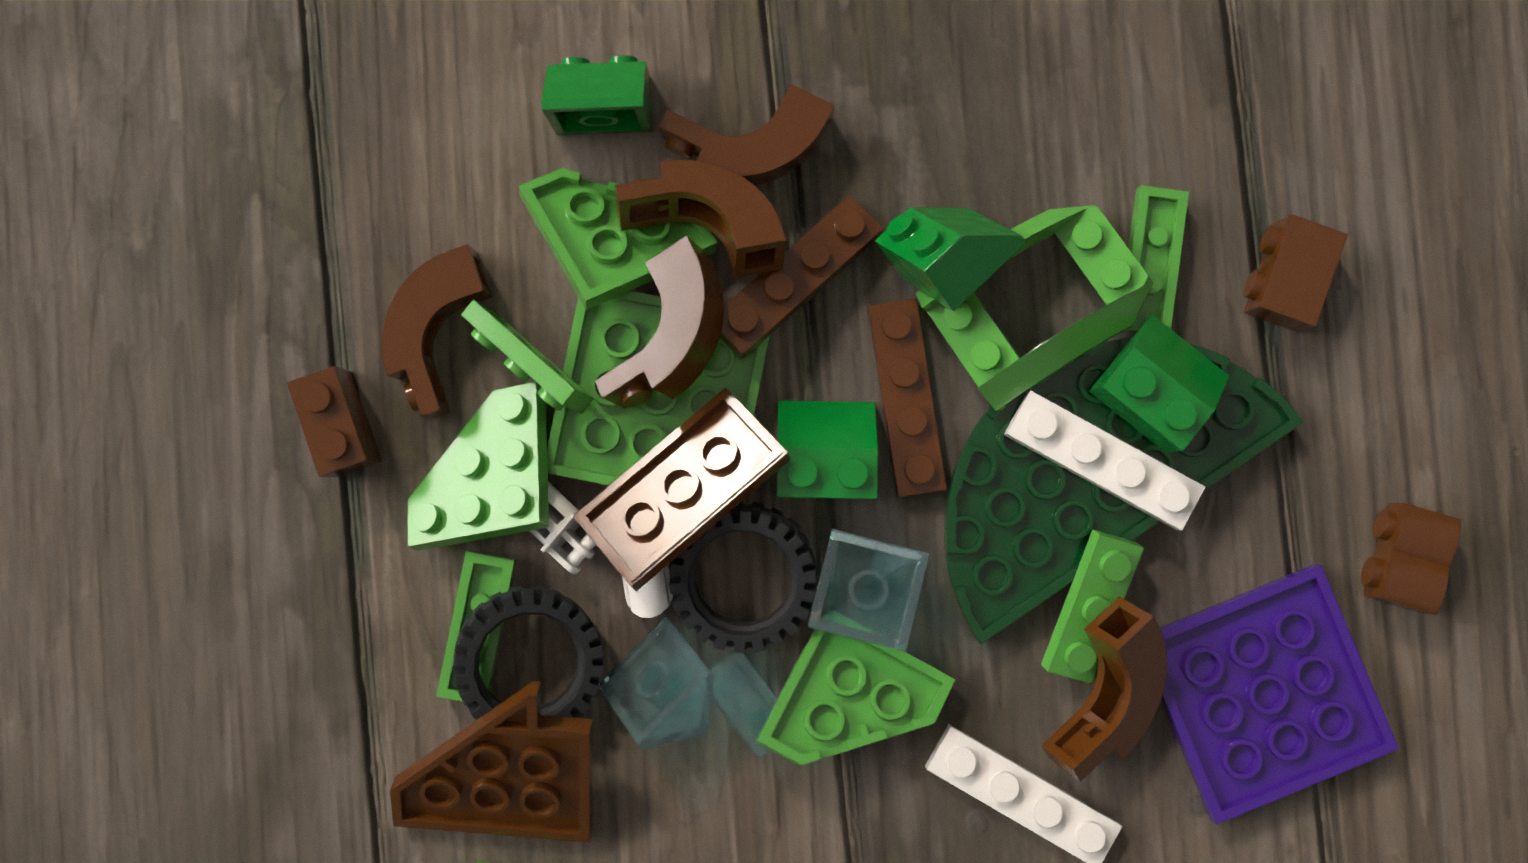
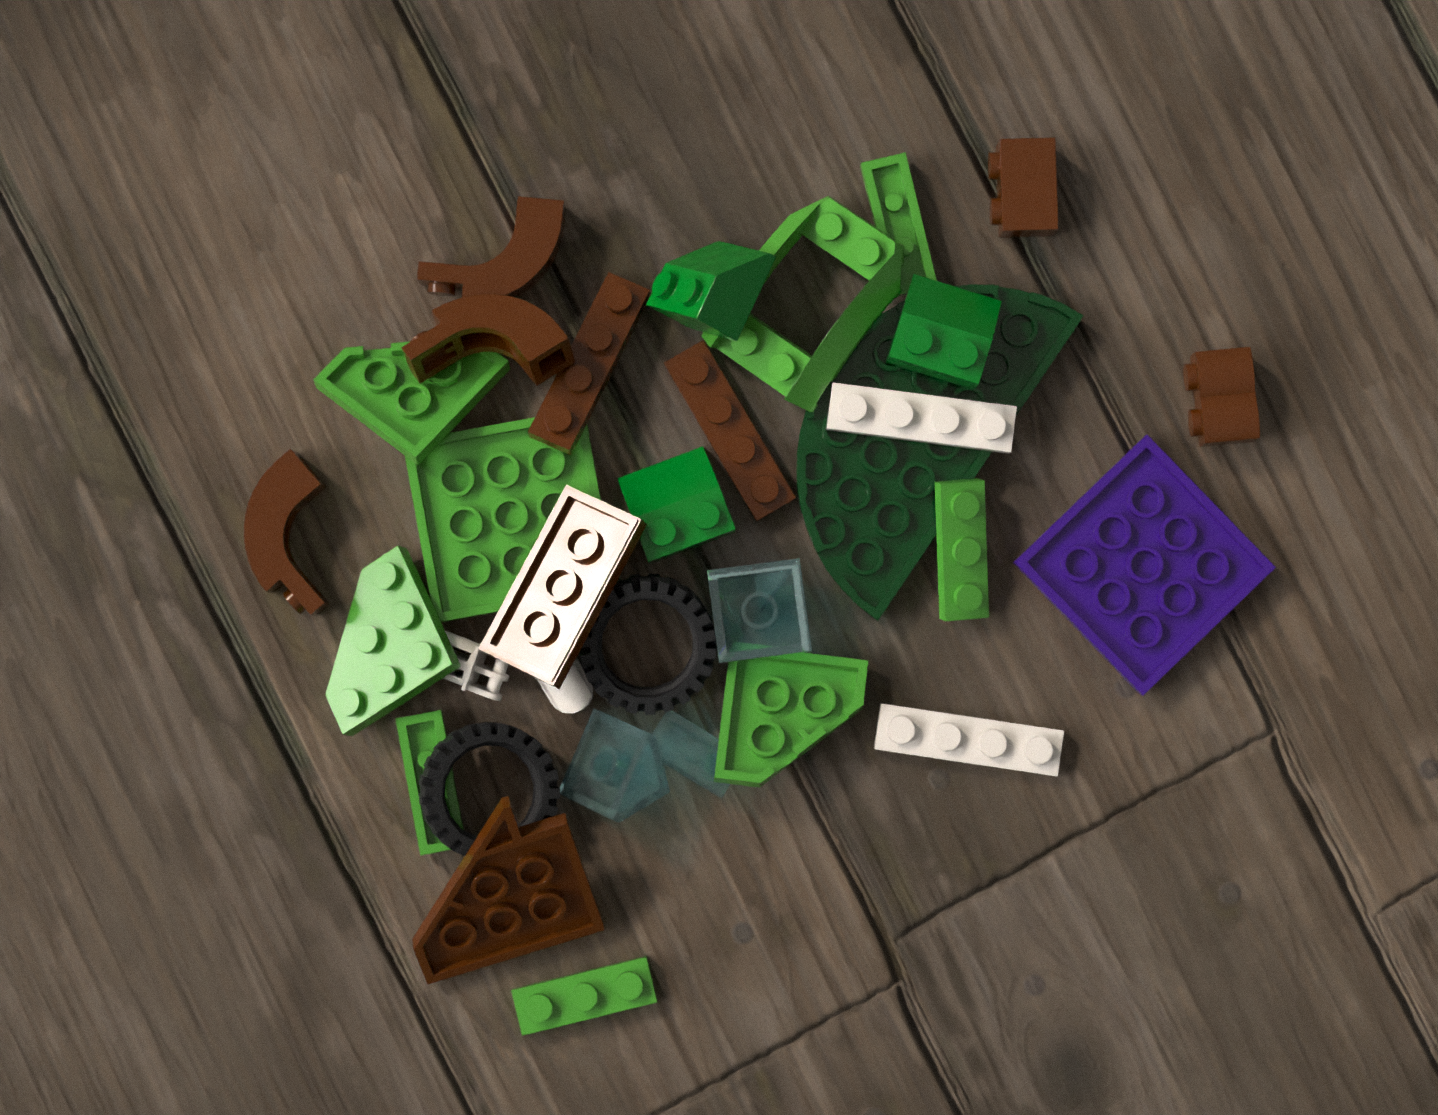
camera: 25 degrees left, 0 degrees up
(334, 422) = (234, 651): reddish brown brick -> none
(525, 359) = (381, 529): bright green plate -> none
(597, 96) = (352, 272): green slope -> none
(686, 331) = (513, 450): arch -> none
(1124, 694) = (1018, 613): reddish brown arch -> none

